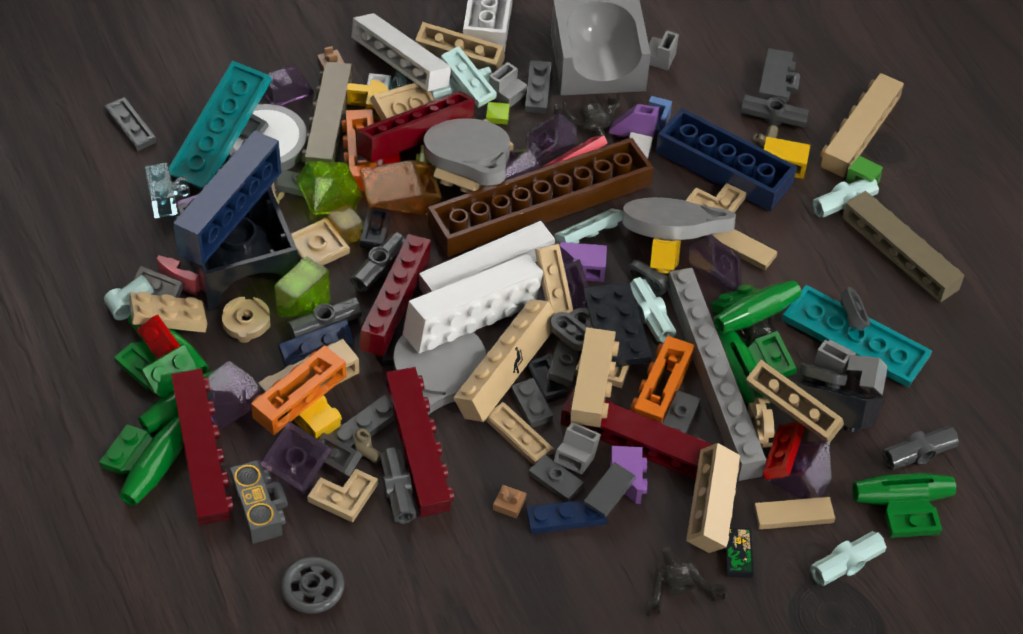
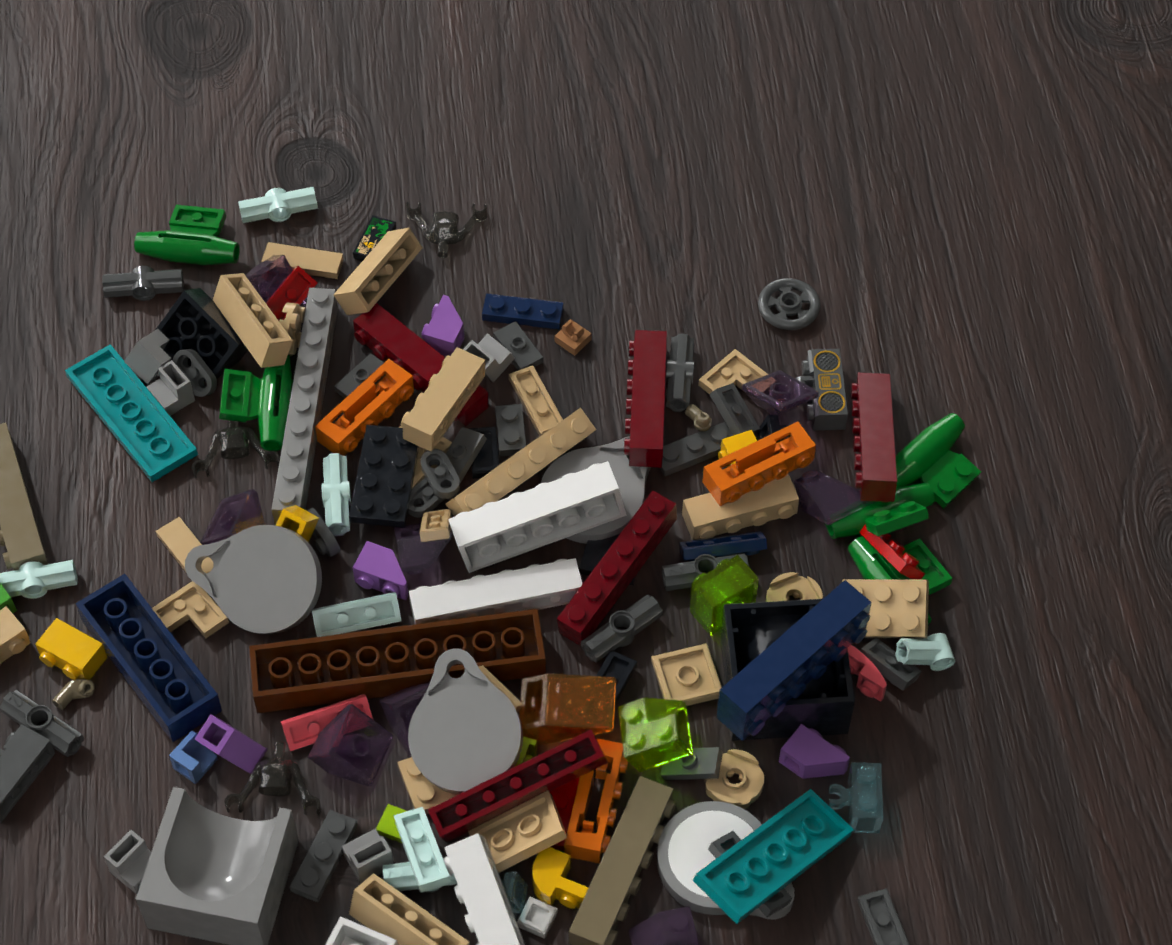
camera: 160 degrees left, 5 degrees up
(346, 223) = (645, 683): clear yellow brick -> none
(610, 489) = (475, 300): dark grey tile -> none
(643, 141) = (240, 716): white tile -> none
(752, 305) = (229, 453): green plate -> none
(855, 309) = (120, 421): dark grey plate -> none

